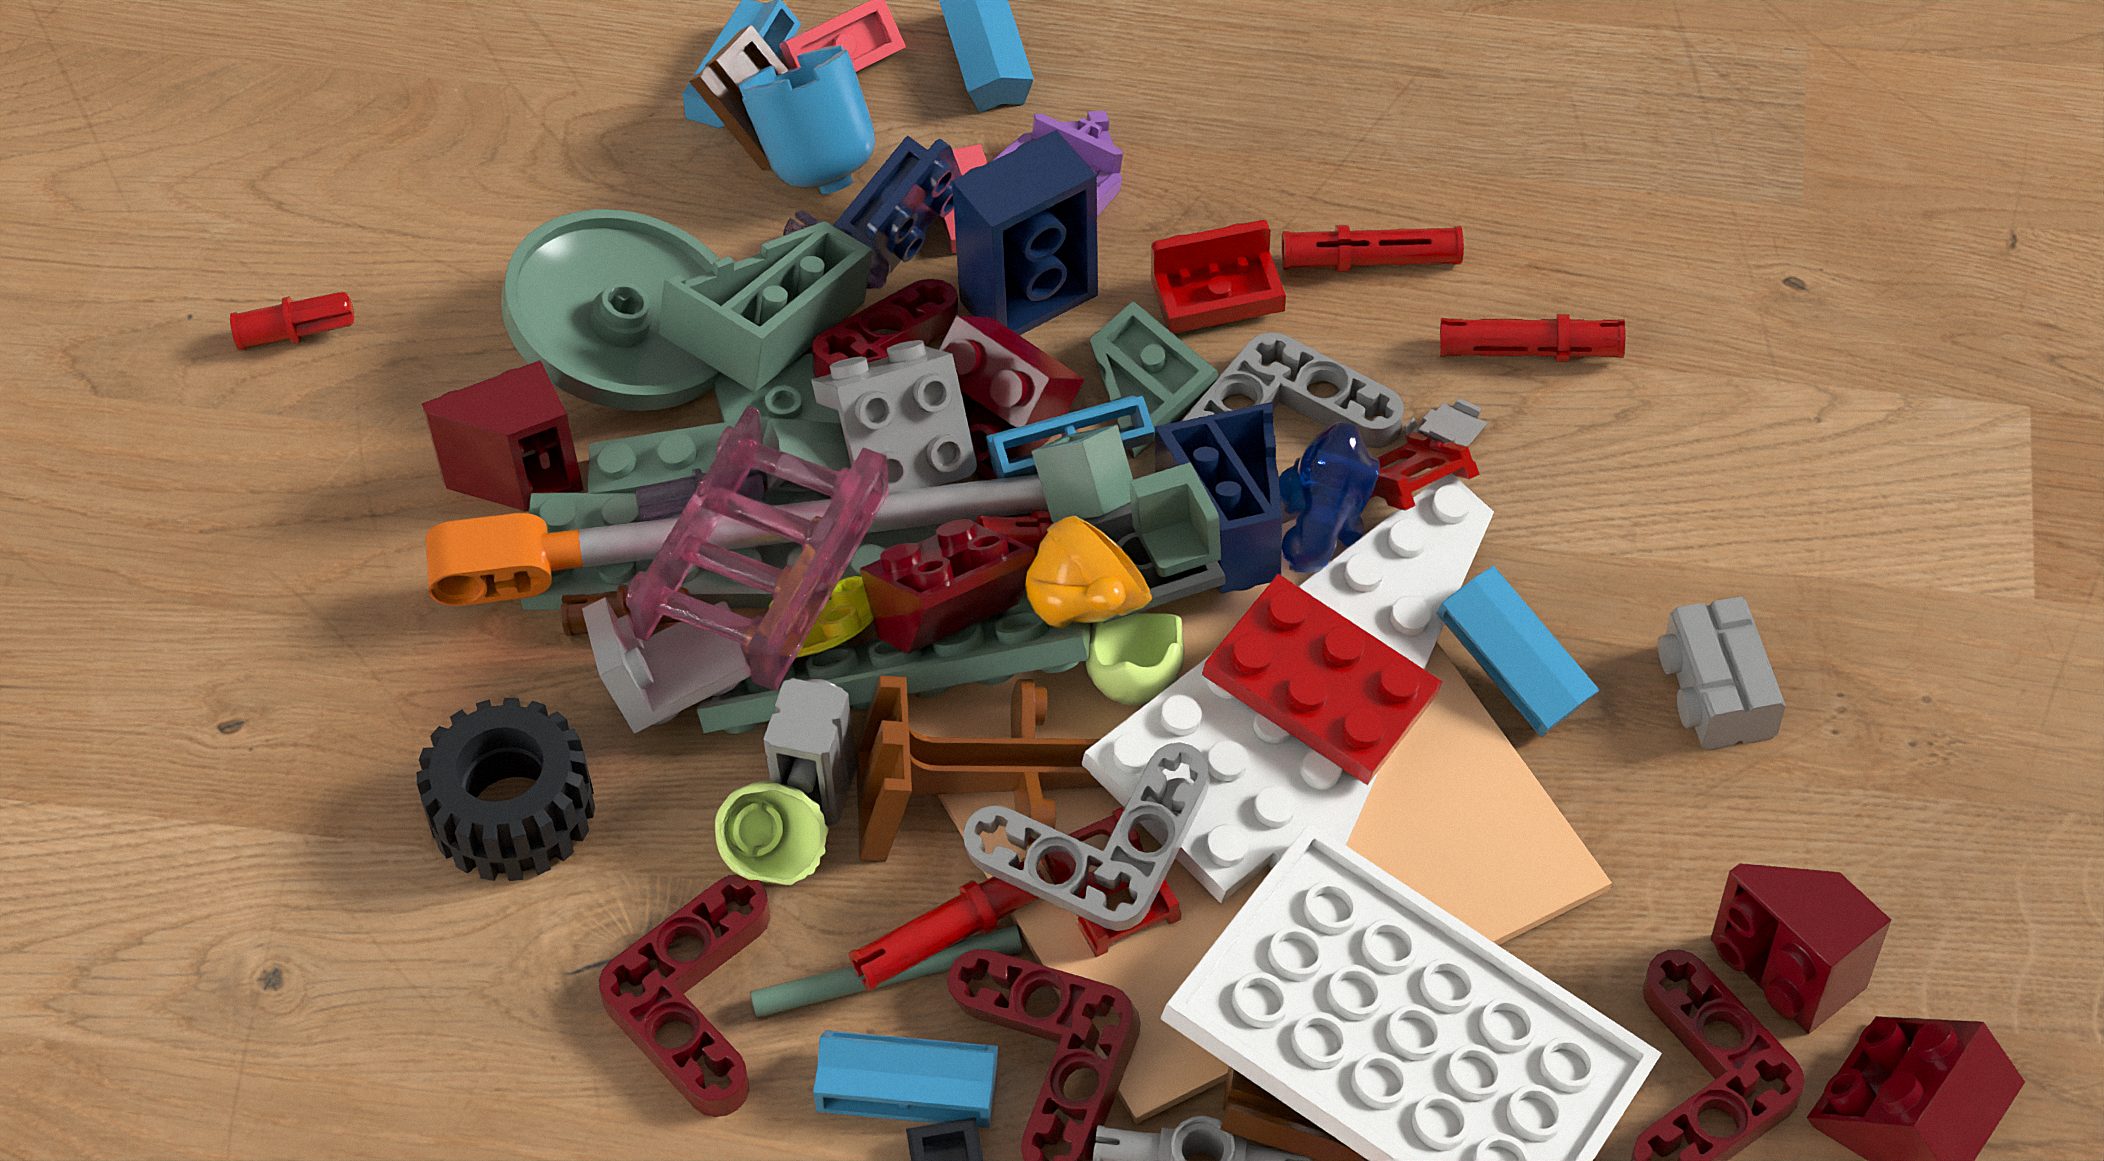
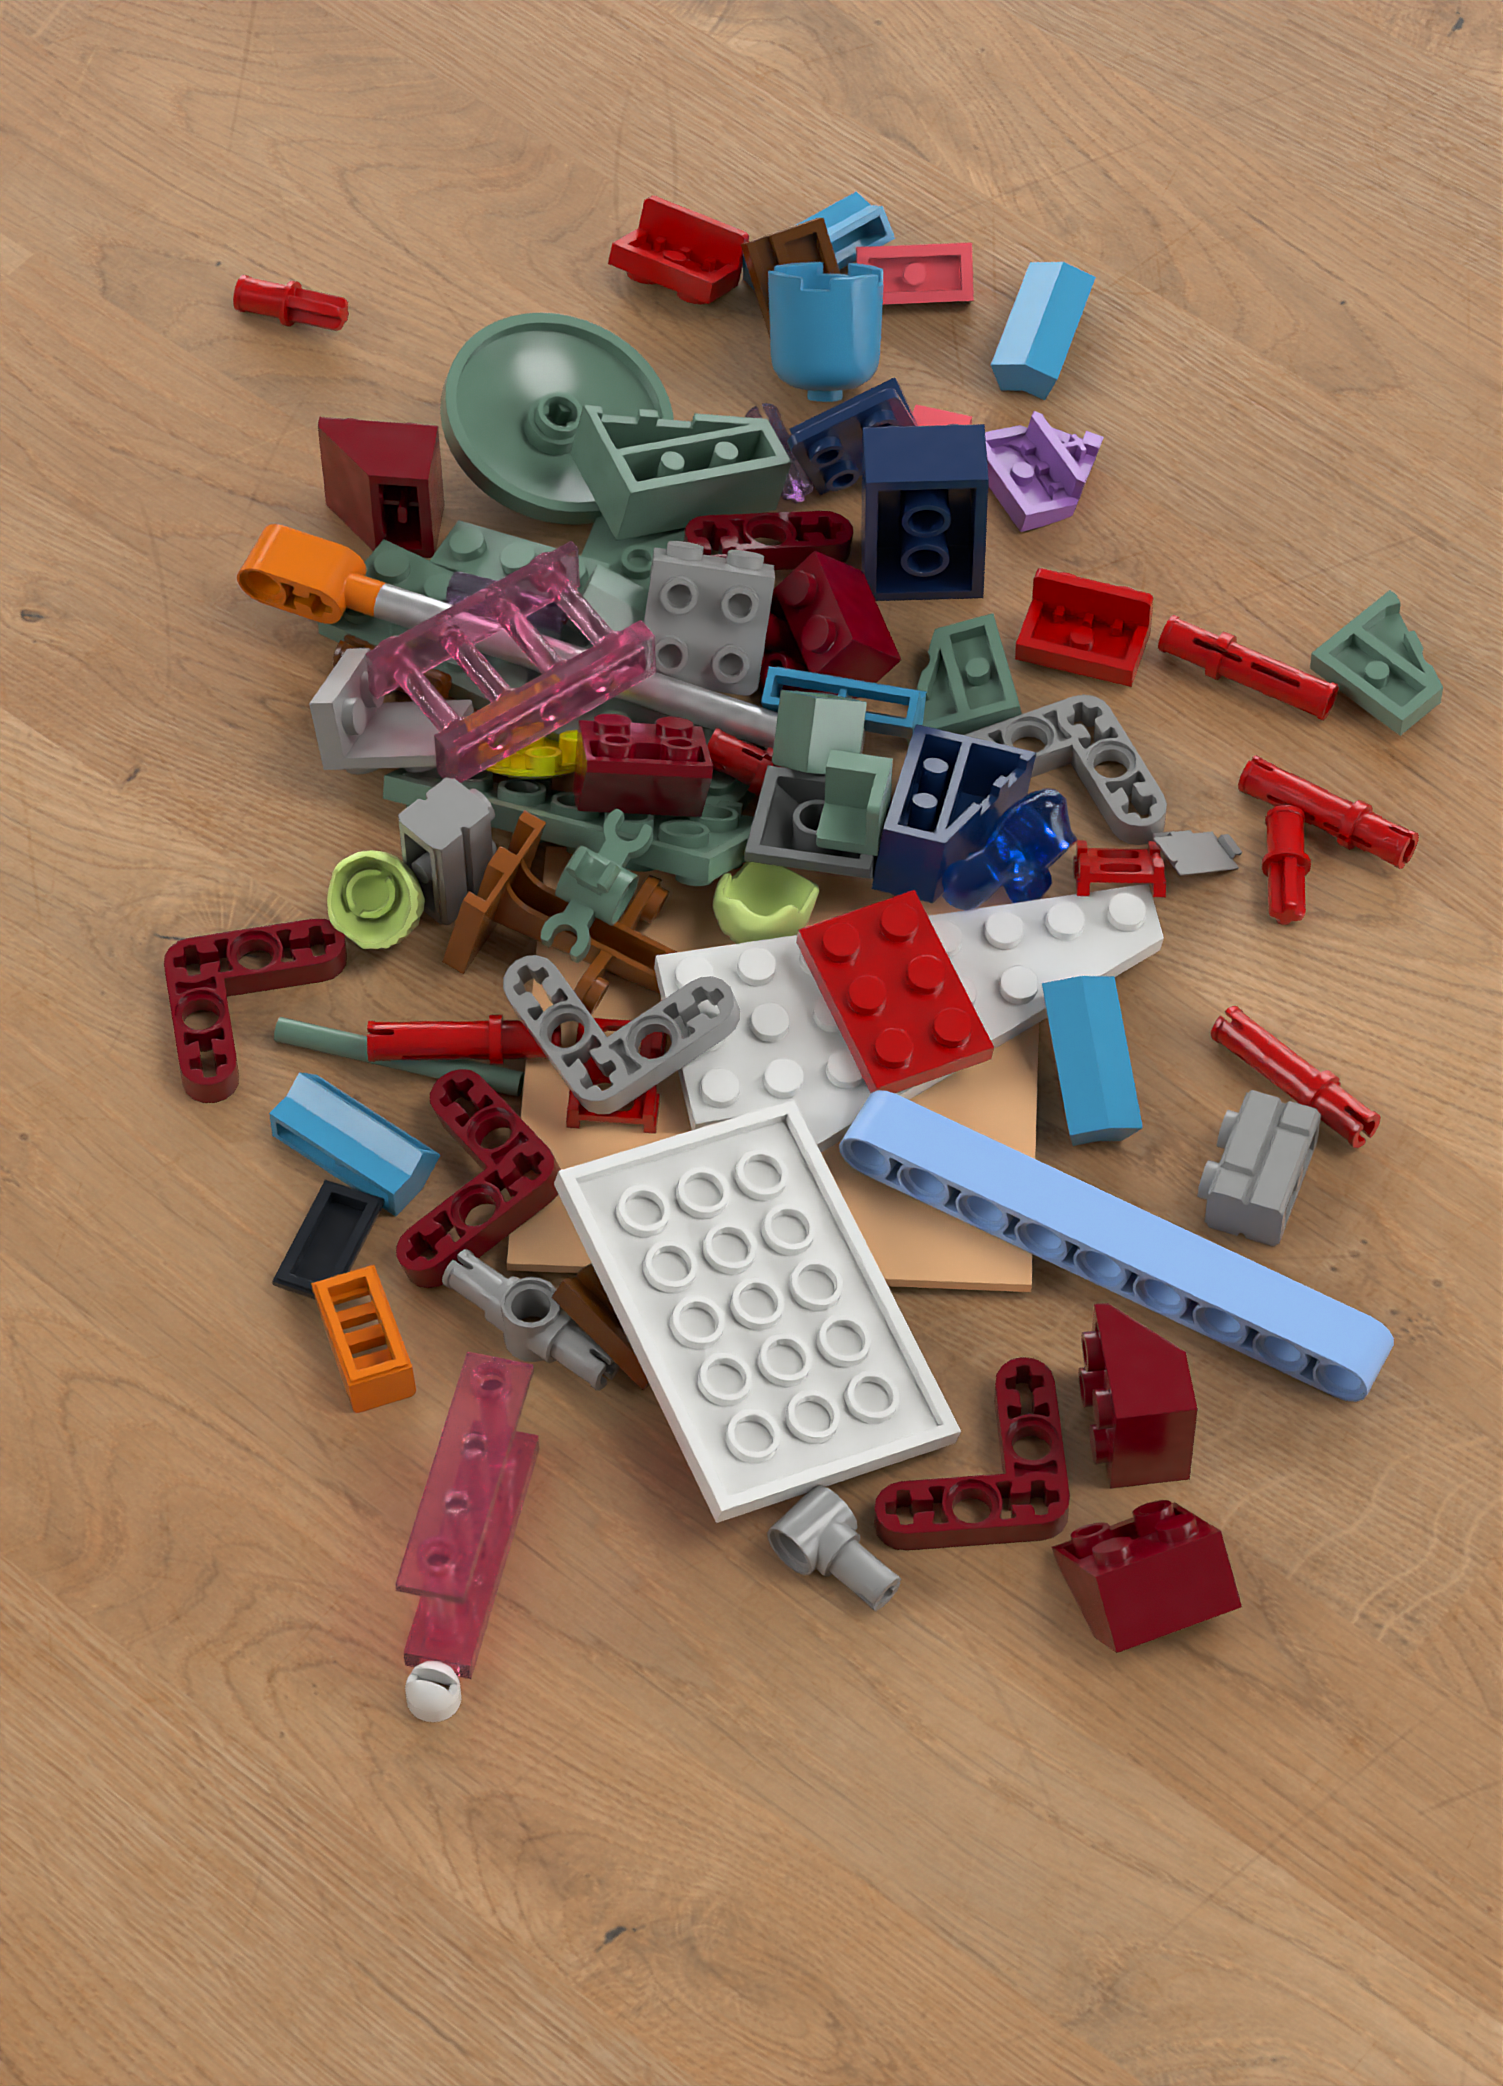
camera: 30 degrees right, 0 degrees up
(498, 746) = (193, 727): black tyre -> none
(624, 115) = (681, 252): none -> red bracket
(990, 713) = (596, 885): none -> sand green pin
(1083, 576) = (741, 809): light orange piece -> none
(1481, 195) = (1381, 666): none -> sand green wing
(1531, 399) = (1286, 863): none -> red axle
(1661, 807) = (1117, 1246): none -> light blue beam
(1682, 577) = (1296, 1076): none -> red pin

